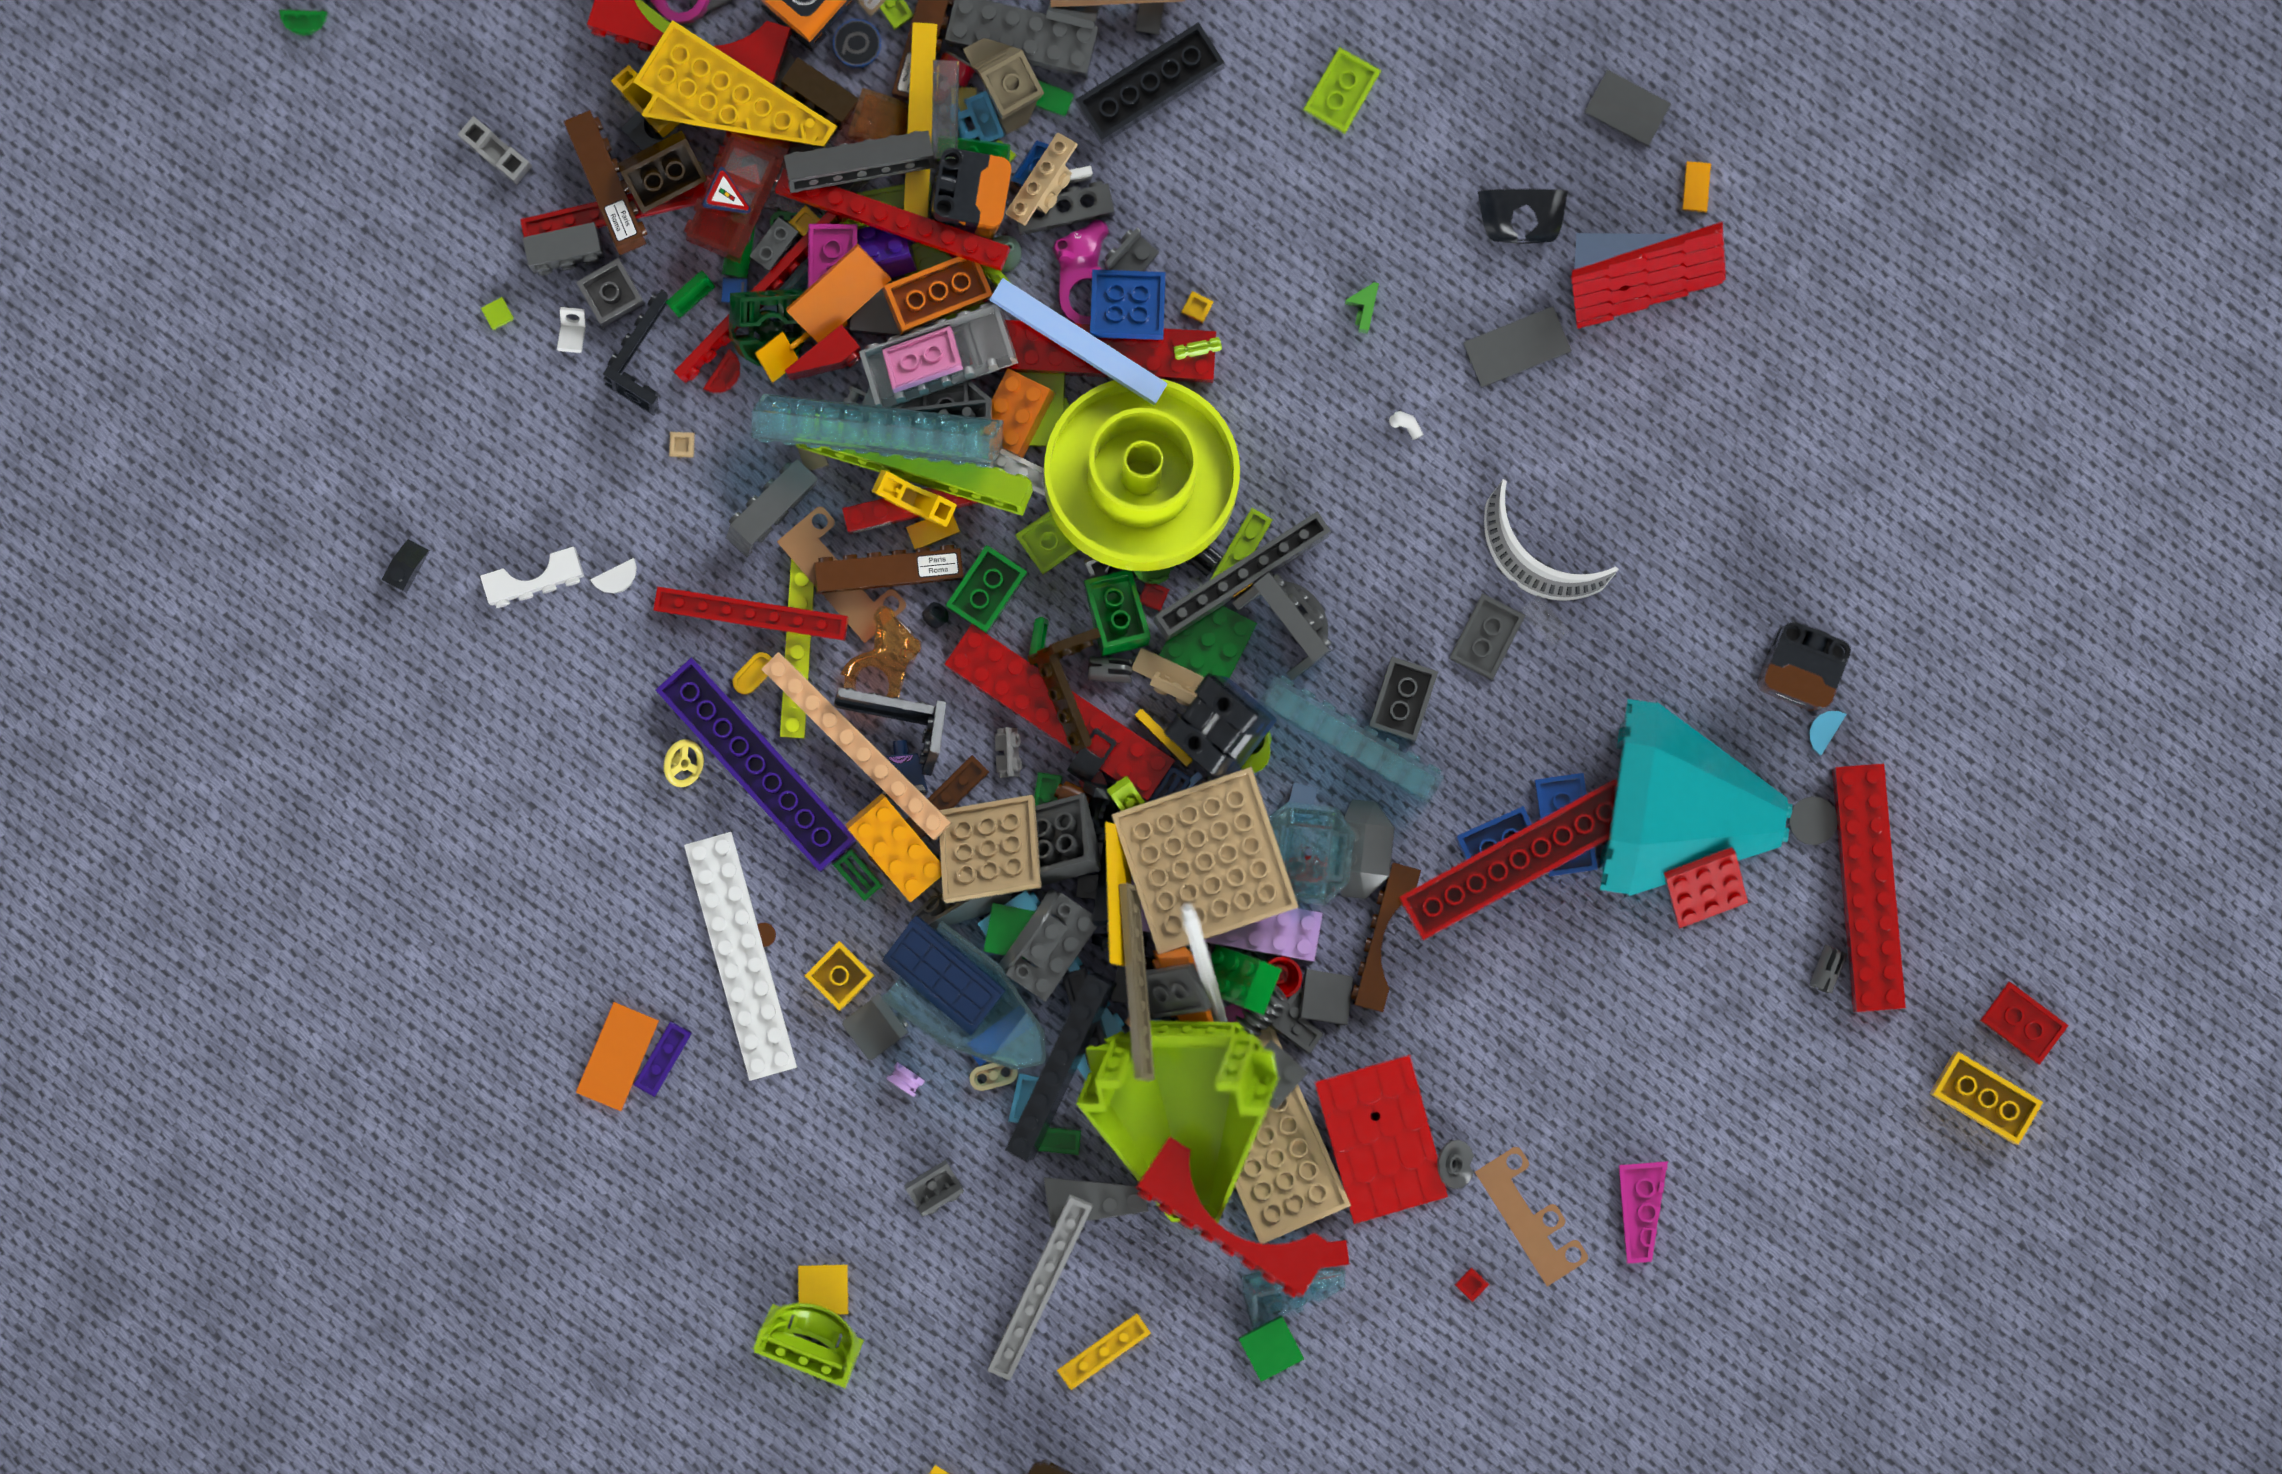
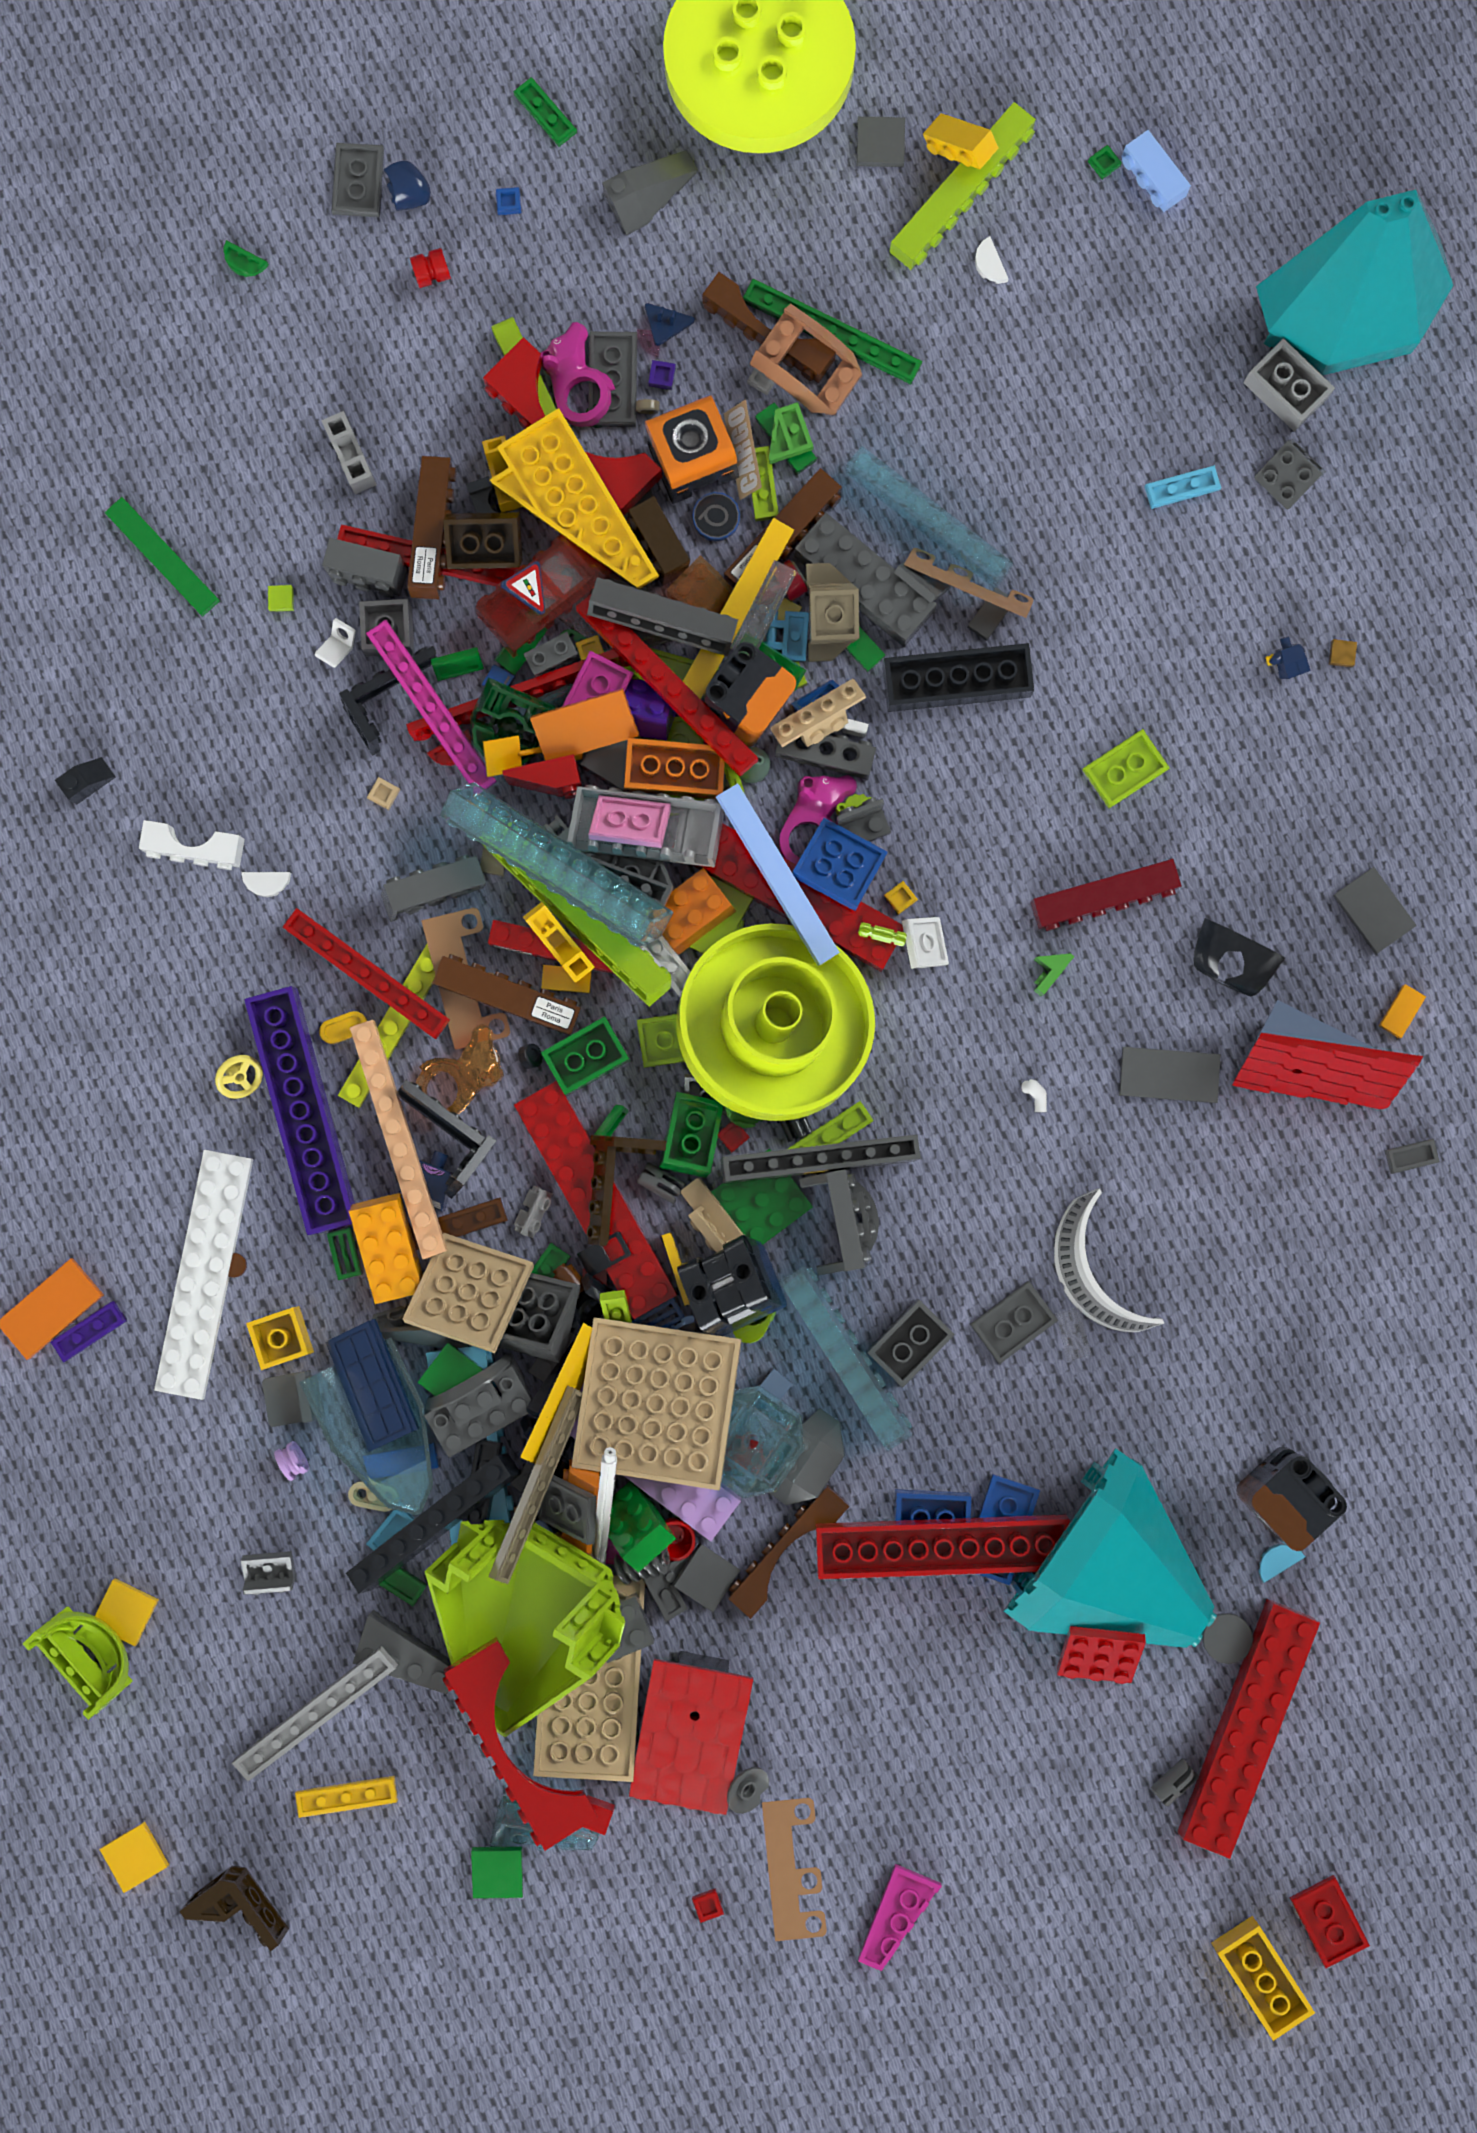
camera: 30 degrees right, 0 degrees up
(369, 329) = (162, 556): none -> green tile
(688, 344) = (429, 705): none -> dark pink tile
(1111, 242) = (855, 801): none -> lime piece
(1239, 336) = (925, 942): none -> white tile
(1379, 213) = (1106, 894): none -> dark red brick
(1768, 312) = (1412, 1156): none -> dark grey tile

